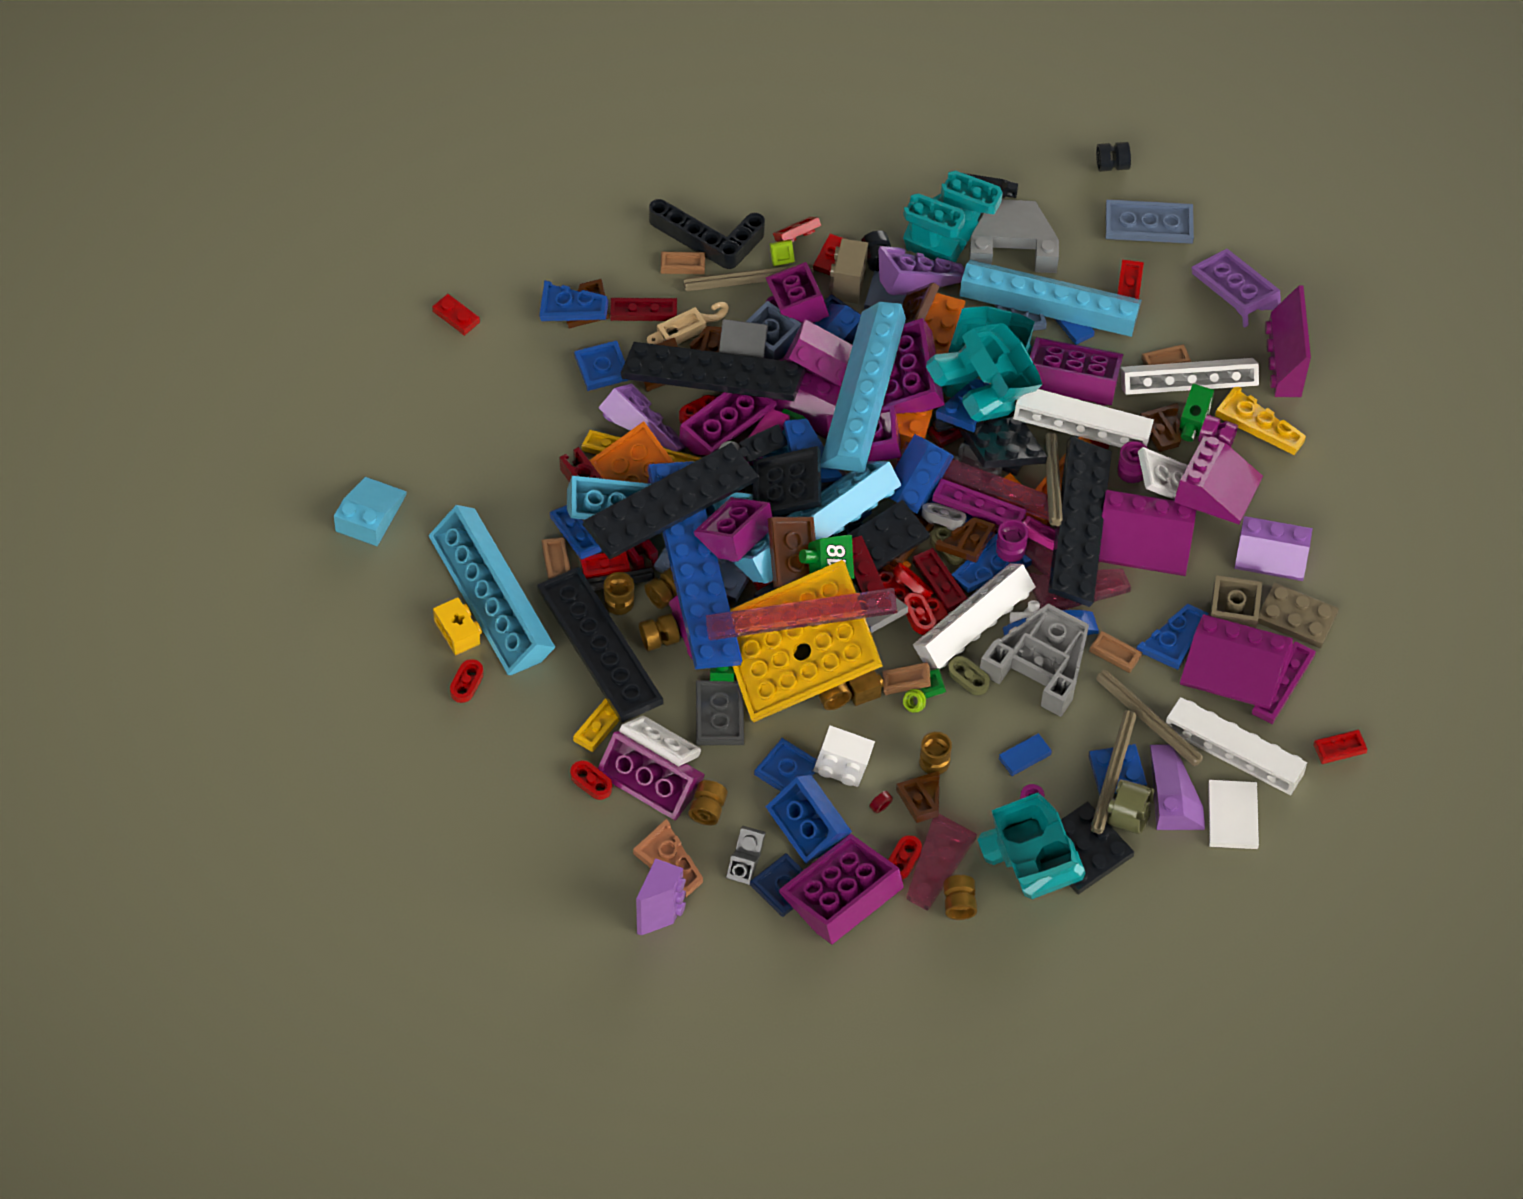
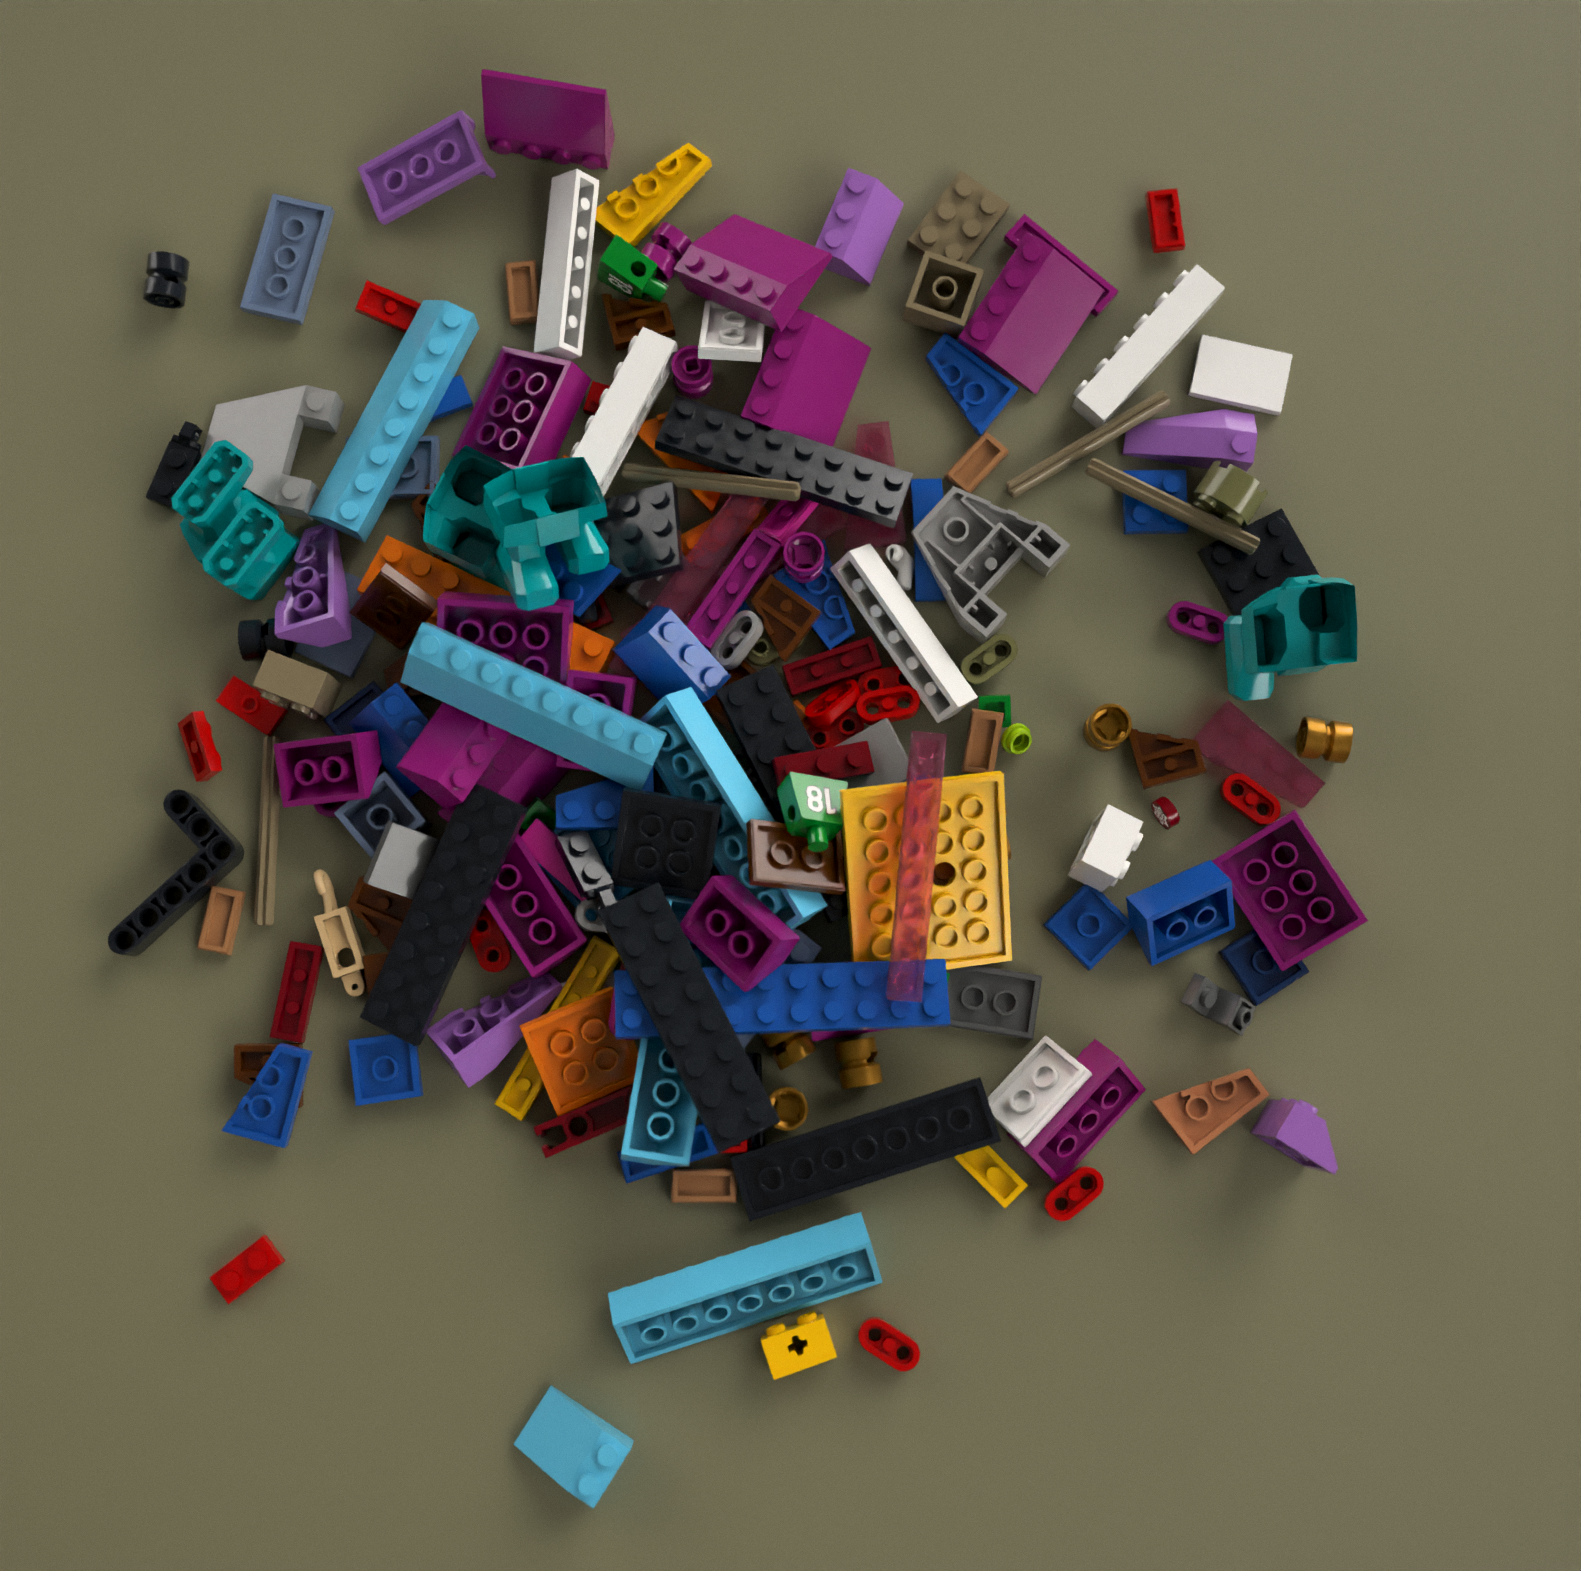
camera: 80 degrees left, 25 degrees up
(709, 799) = (1135, 1040): pearl gold wheel -> none
(782, 252) = (237, 775): lime tile -> none
(1025, 754) = (1115, 613): blue tile -> none

